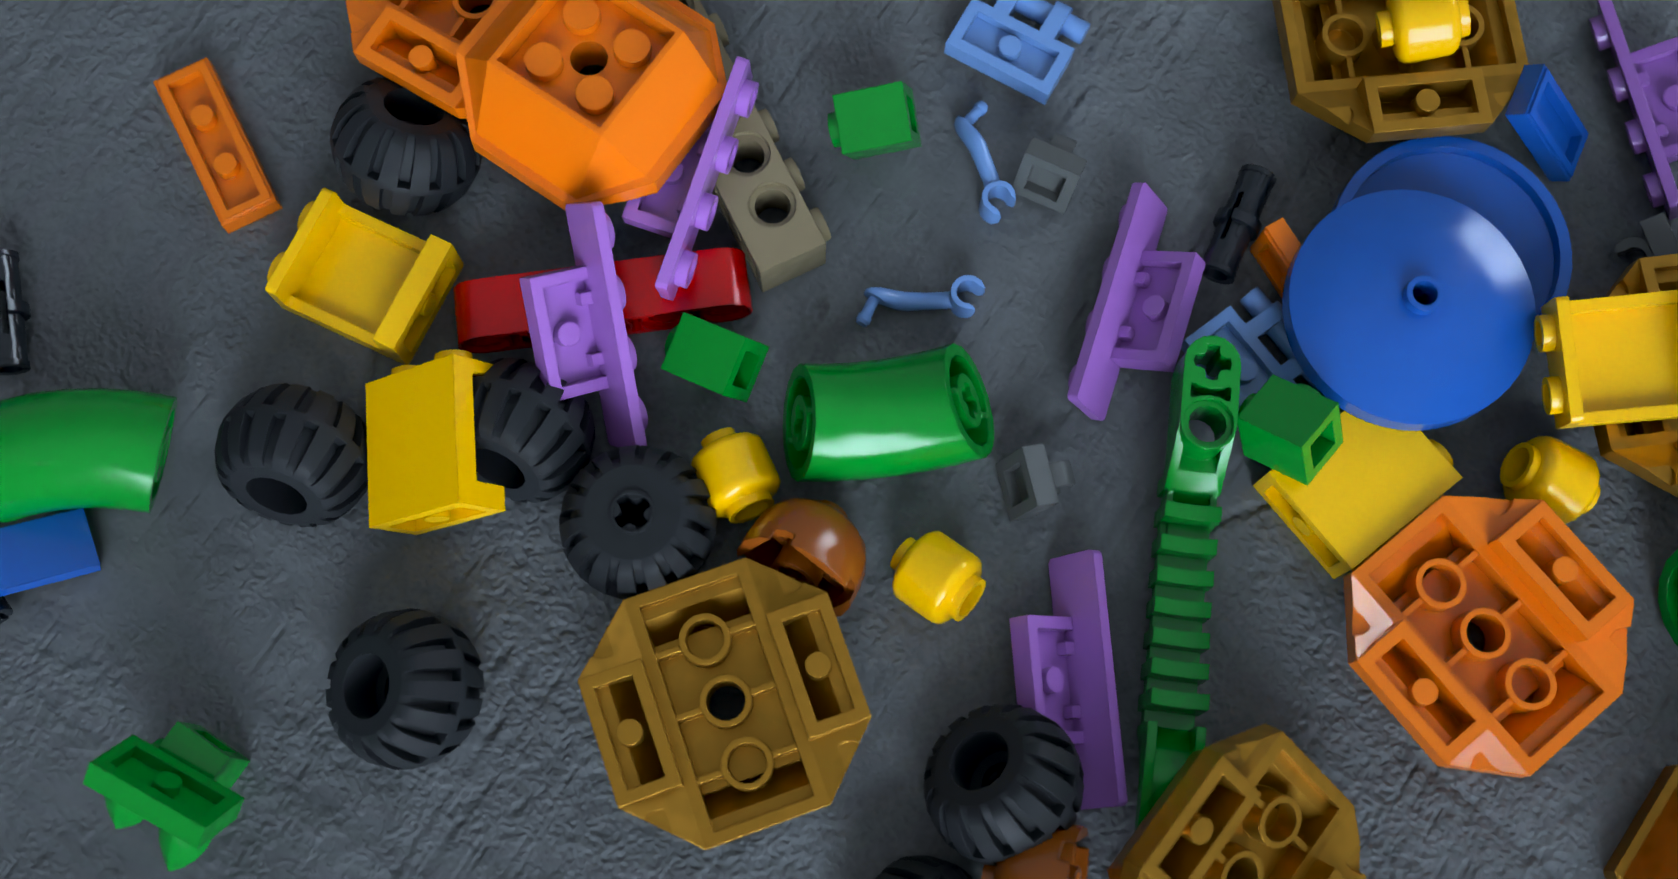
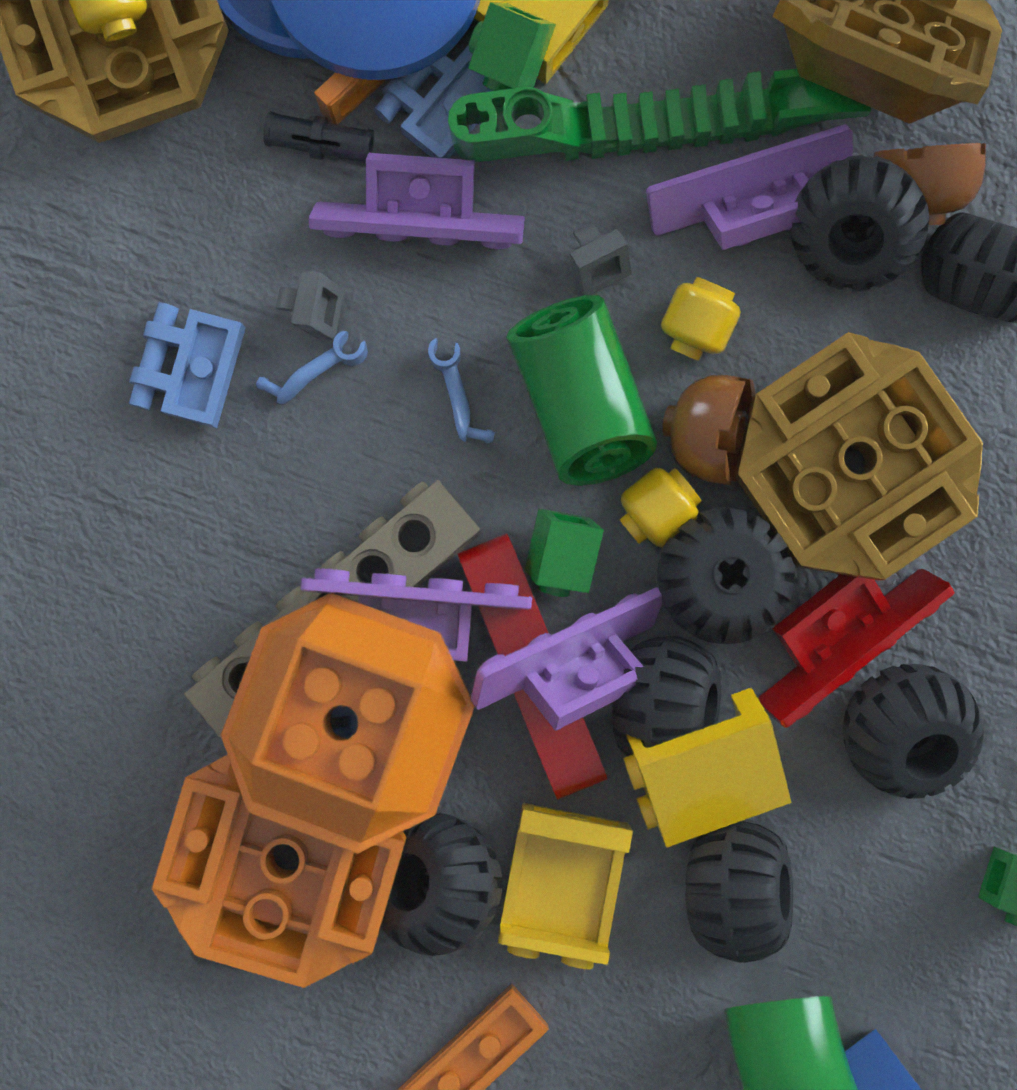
camera: 100 degrees left, 10 degrees up
(539, 644) = (842, 633): none -> red bracket
(874, 121) = (308, 468): green brick -> none

